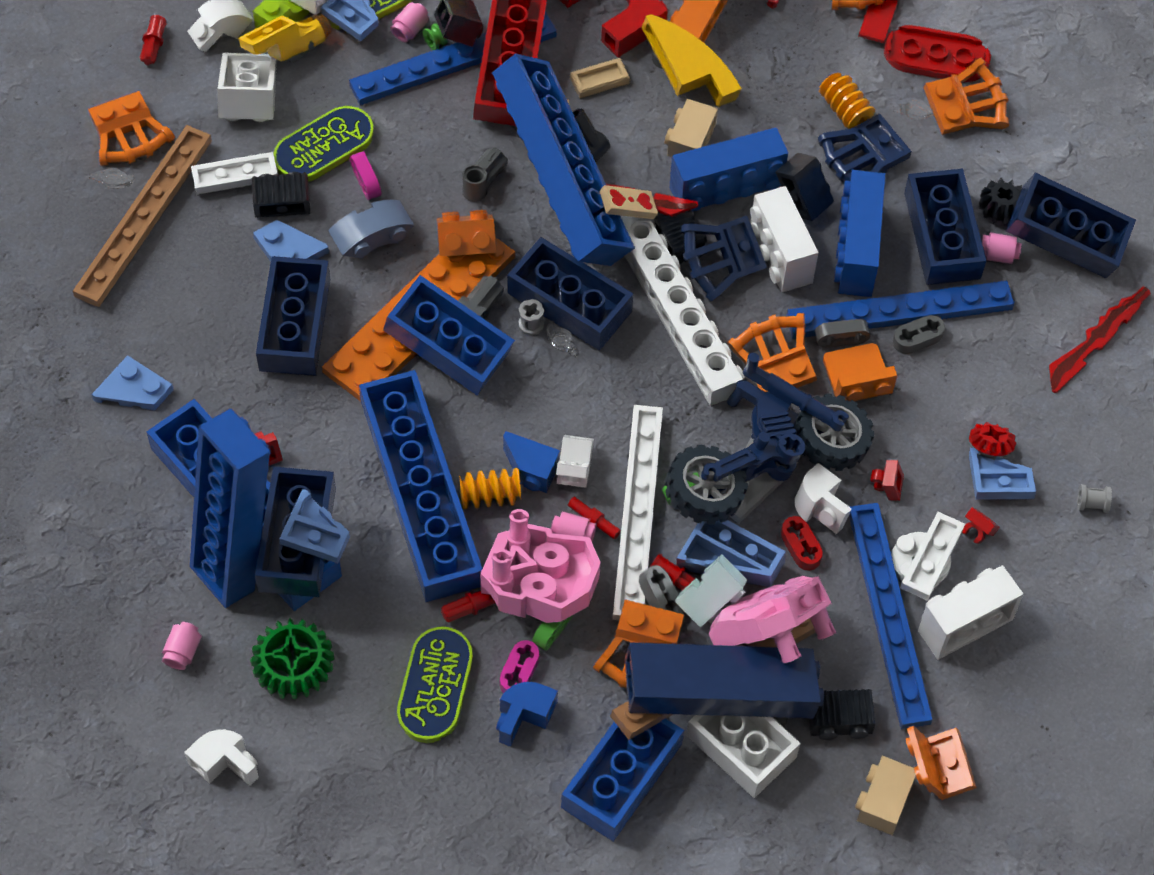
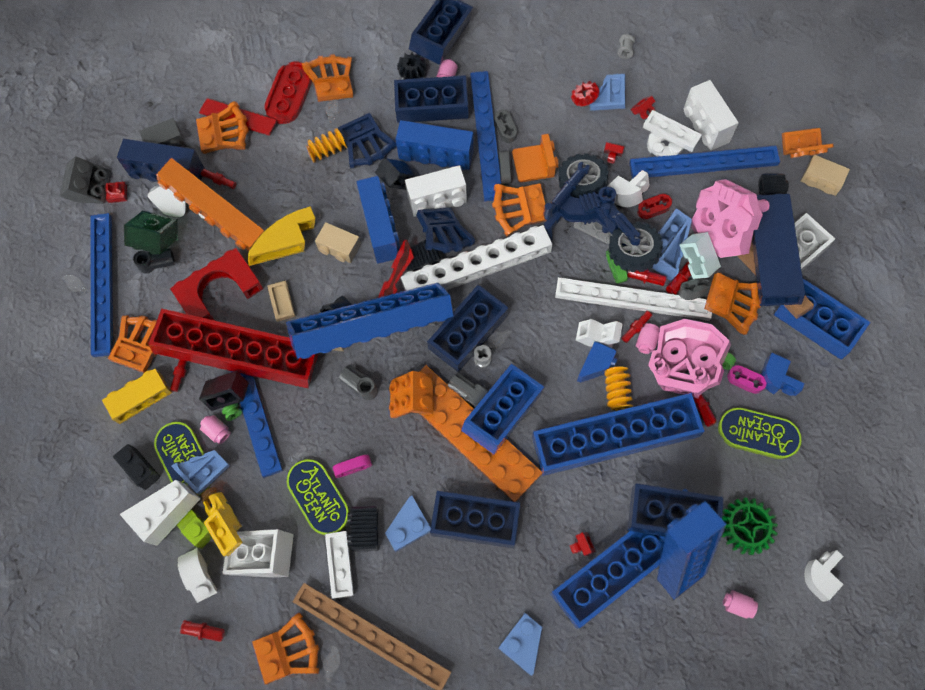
camera: 80 degrees left, 10 degrees up
(314, 530) = (689, 491): medium blue wing -> none
(363, 232) = (401, 461): sand blue brick -> none
(628, 202) = (406, 280): tan tile -> none
(677, 531) = (647, 276): none -> red axle
(1097, 337) = (511, 32): red sword -> none

